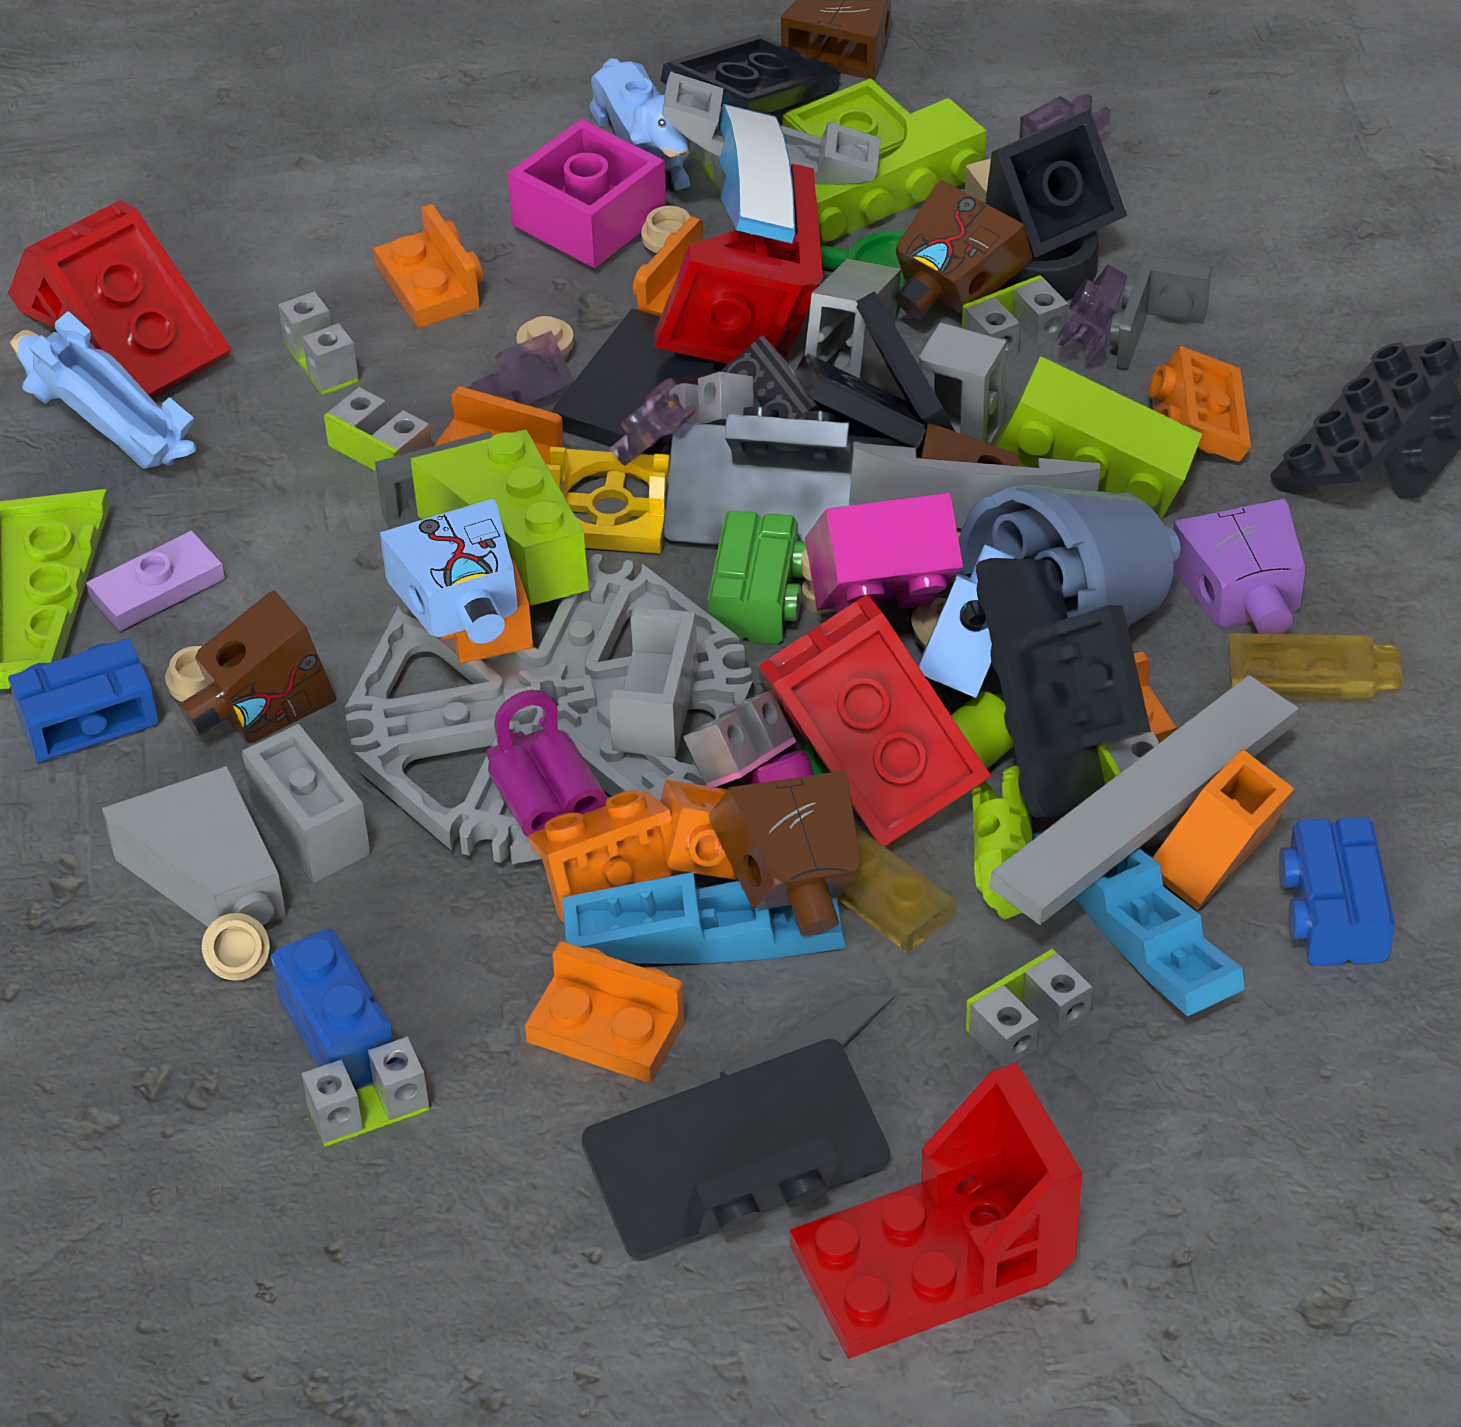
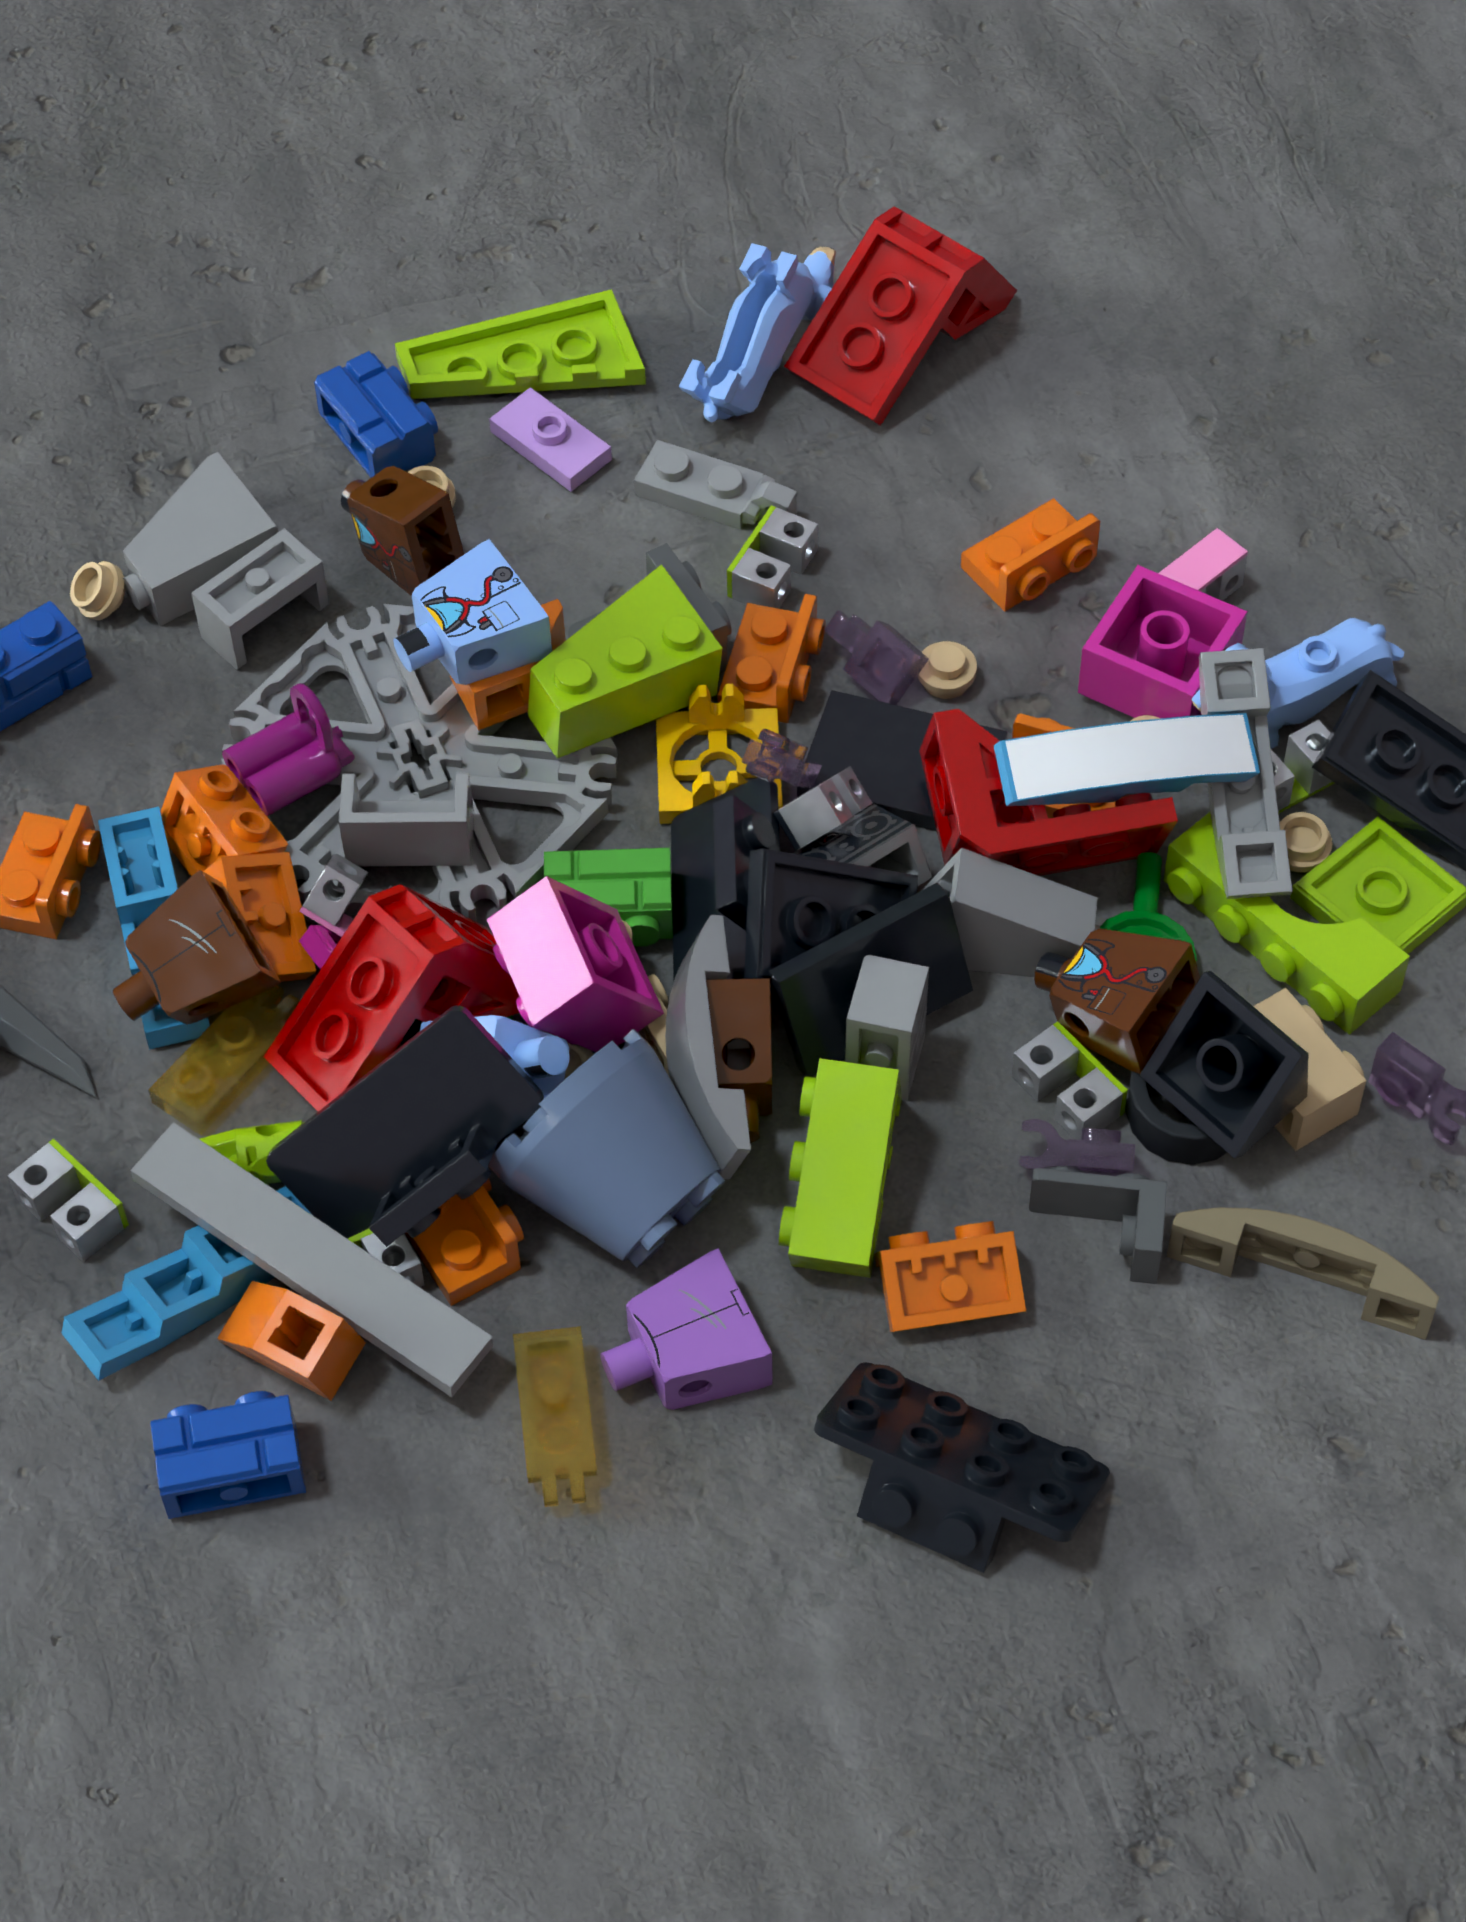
camera: 80 degrees right, 10 degrees up
(266, 470) = (709, 486): none -> light grey hinge
(318, 347) = (886, 497): flat silver piece -> none
(487, 161) = (1211, 566): none -> bright pink piece
(1236, 175) = (1311, 1249): none -> dark tan slope

